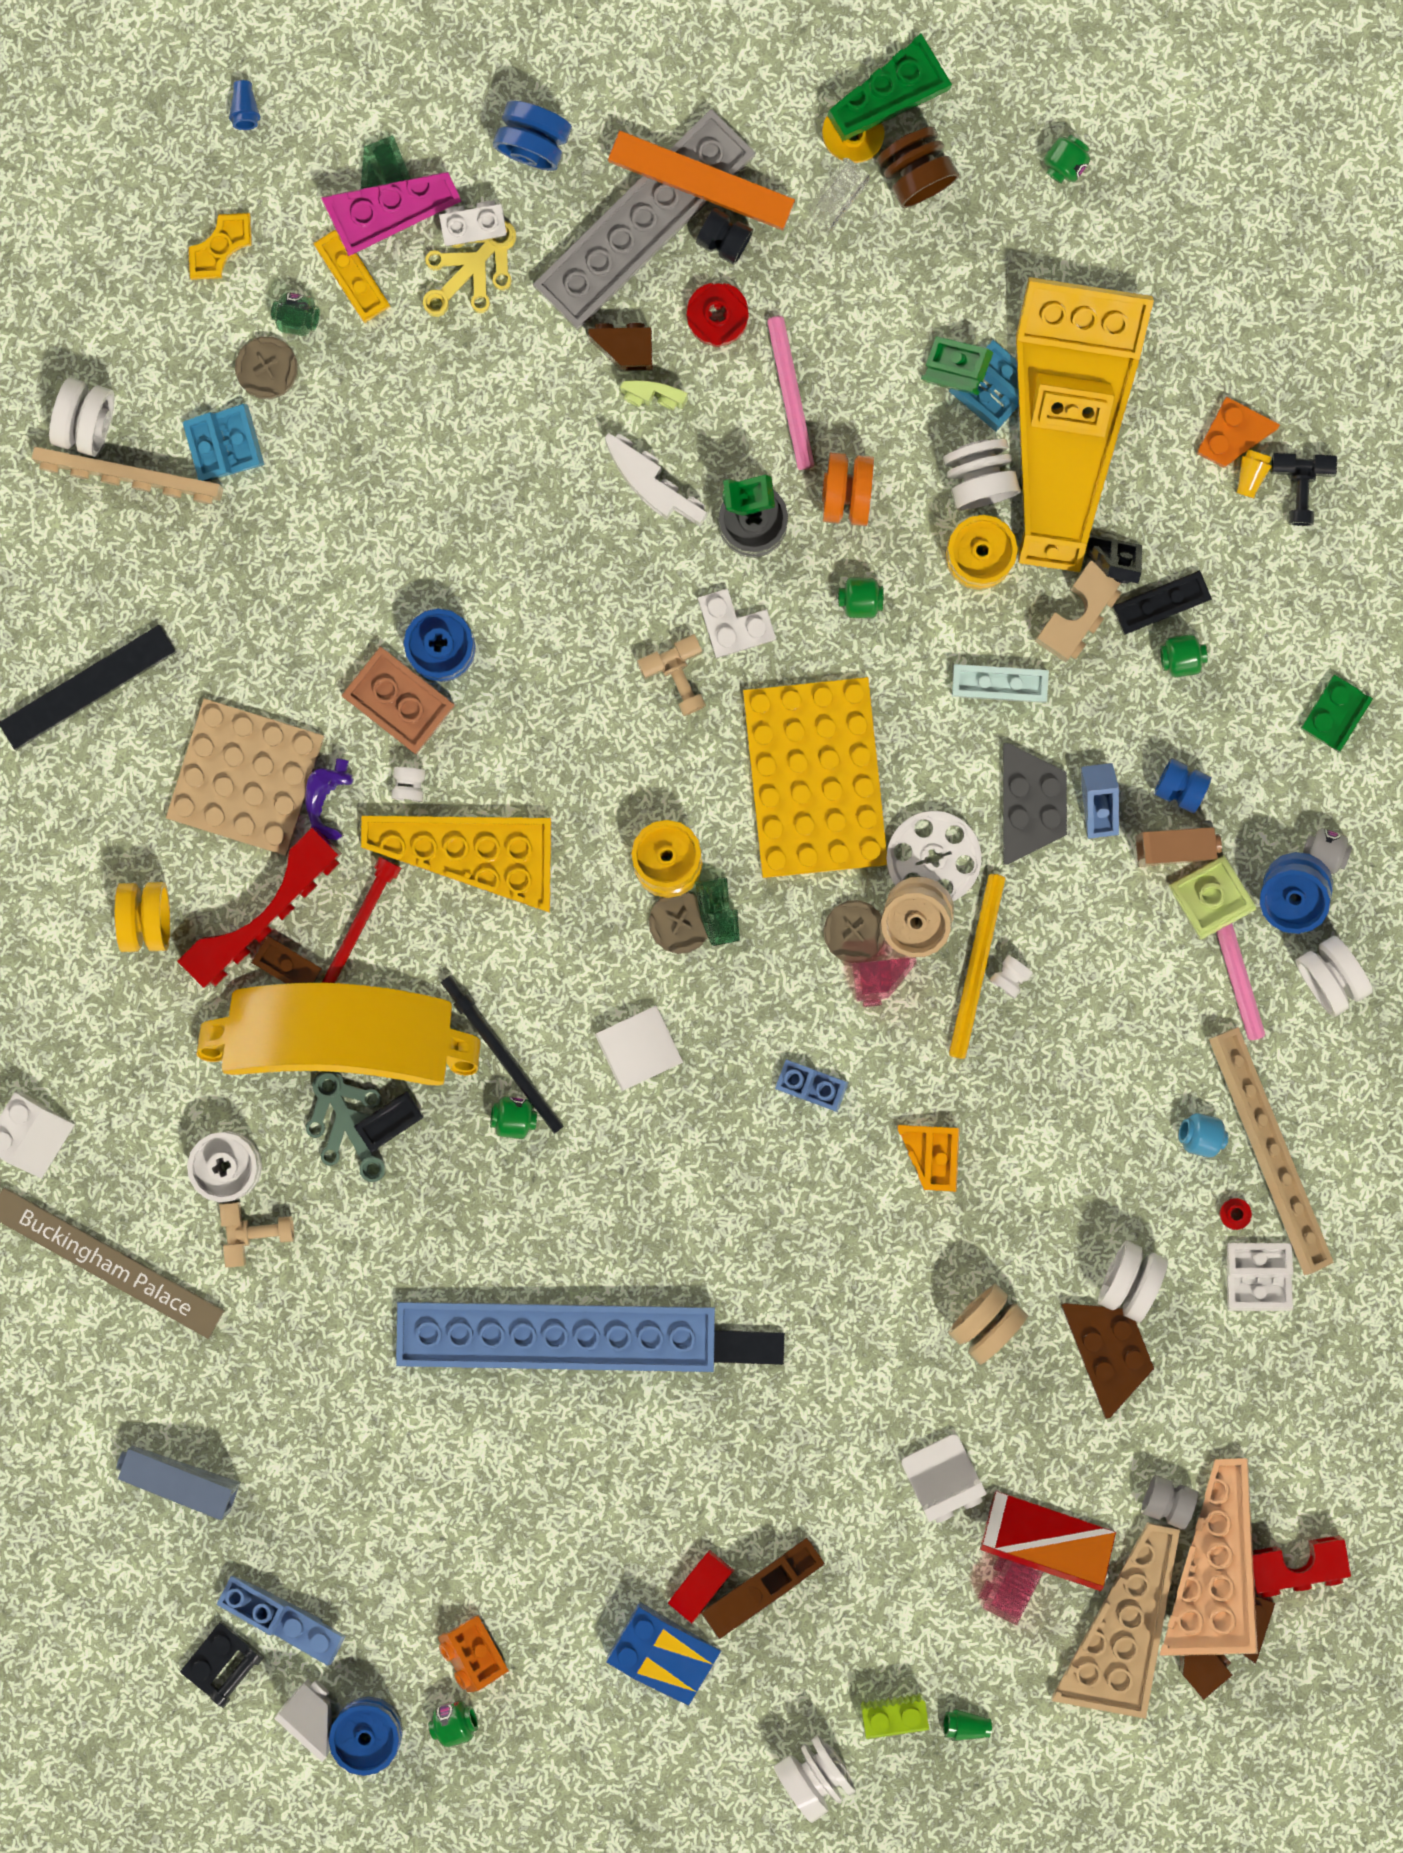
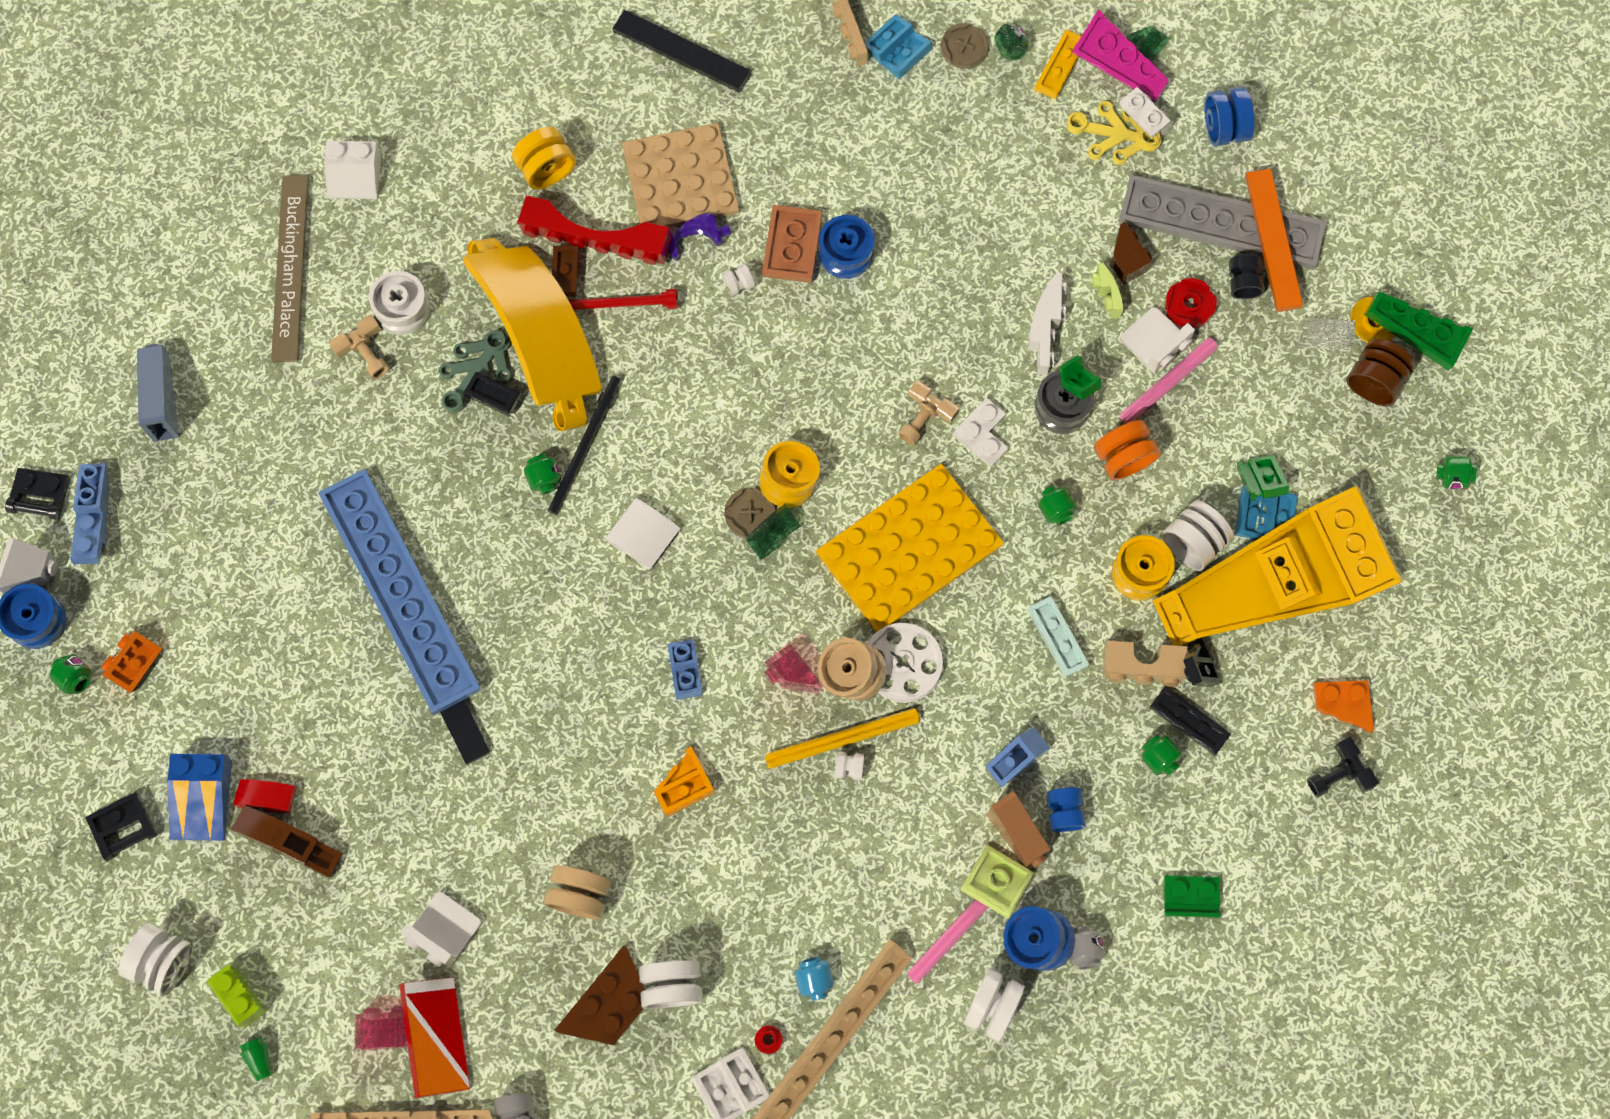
camera: 55 degrees right, 15 degrees down
(486, 852) = (720, 355): yellow wing -> none
(637, 1748) = (117, 818): none -> black plate
(738, 377) = (1156, 339): none -> white bracket
(854, 931) = (812, 634): dark tan tile -> none
(1031, 803) = (985, 710): dark grey wing -> none
(1252, 472) = (1328, 730): yellow cone -> none

